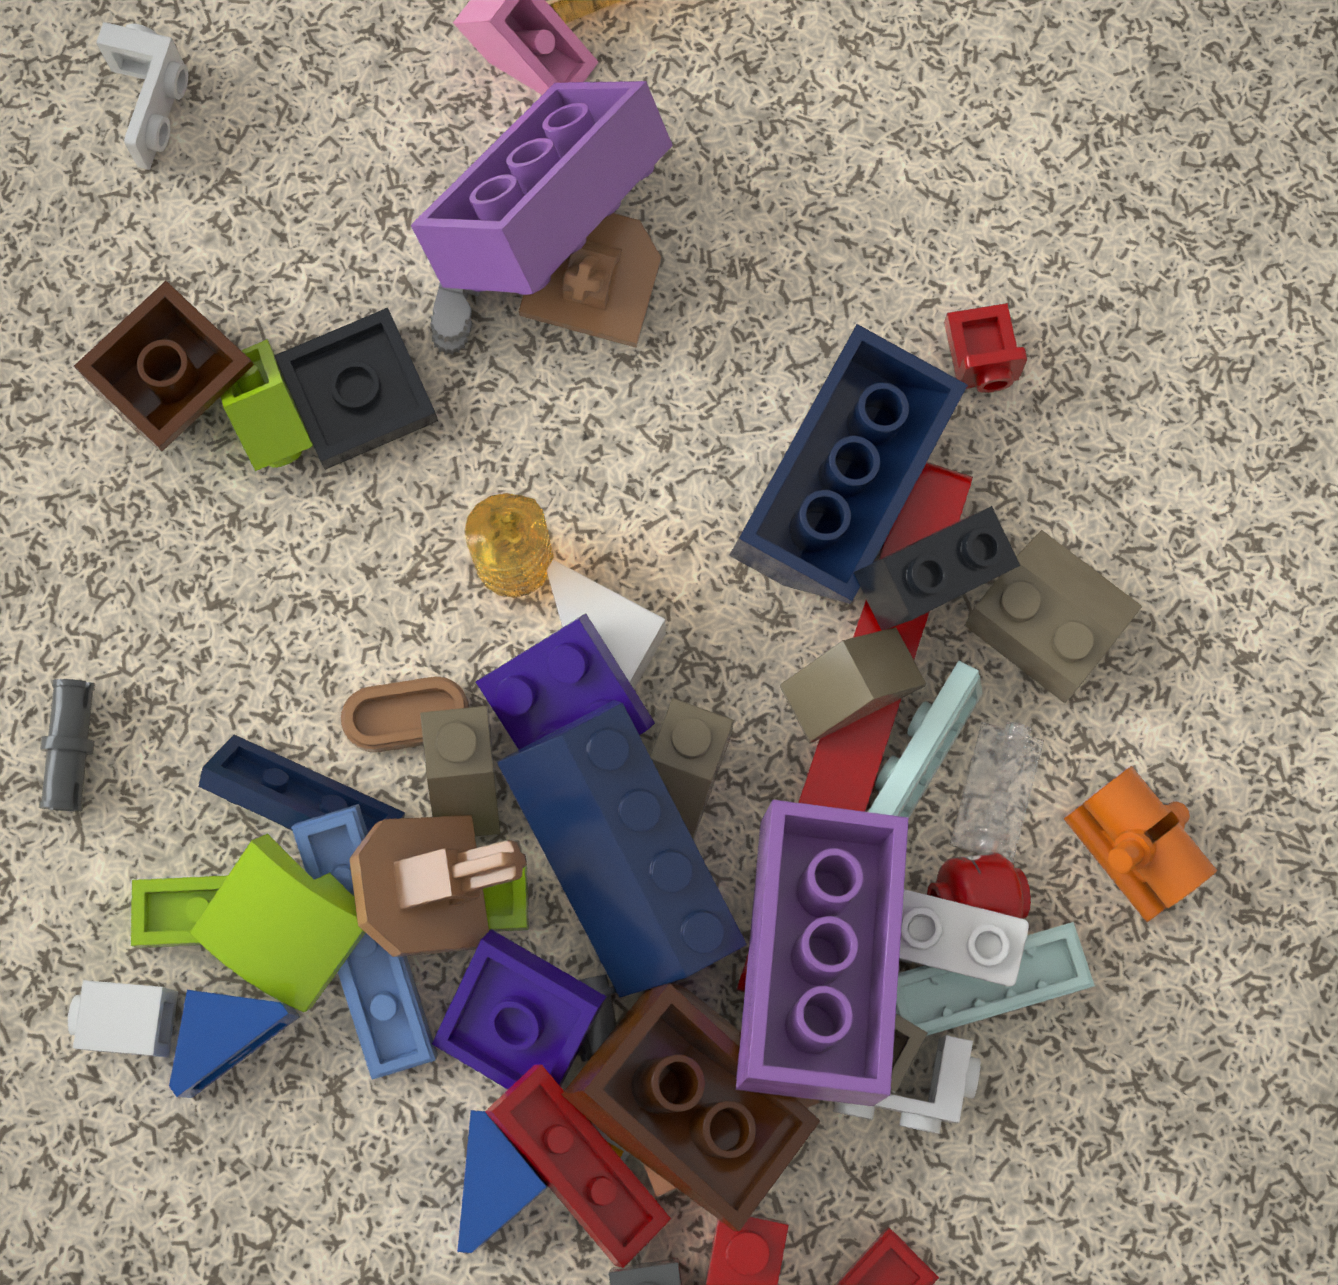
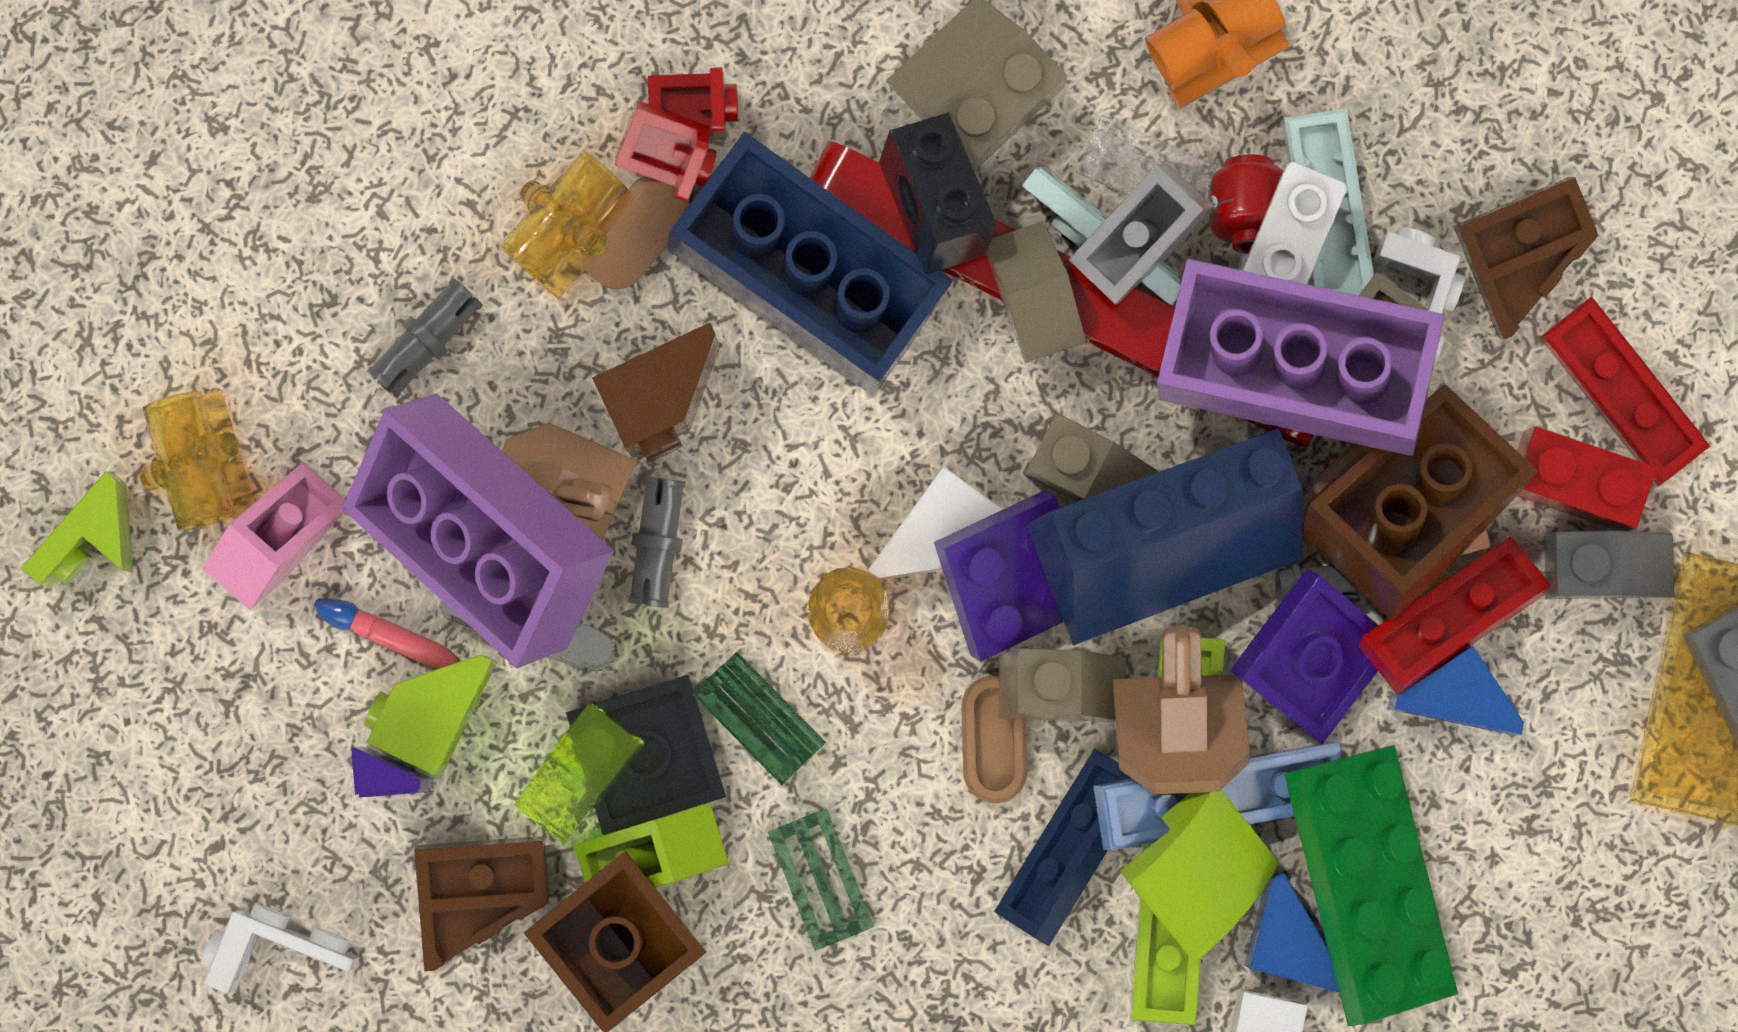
camera: 85 degrees left, 10 degrees up
(214, 254) = (475, 891): none -> reddish brown wing
(263, 587) = (841, 929): none -> clear green tile
(285, 1110) = (1371, 885): none -> green plate
(309, 147) = (383, 776): none -> dark purple slope
(333, 320) = (578, 773): none -> clear neon green slope
(368, 188) = (428, 713): none -> lime slope
(418, 498) = (765, 713): none -> clear green tile
(460, 115) = (347, 616): none -> coral piece
(560, 372) = (656, 542): none -> dark grey pin
(702, 343) = (659, 392): none -> reddish brown slope
(726, 144) = (424, 338): none -> dark grey pin
(837, 301) = (635, 233): none -> medium nougat tile
(852, 252) = (563, 223): none -> clear yellow pin
(931, 778) = (1141, 232): none -> light grey slope
(939, 319) = (666, 148): none -> bracket
(979, 1198) = (1525, 248): none -> reddish brown wing

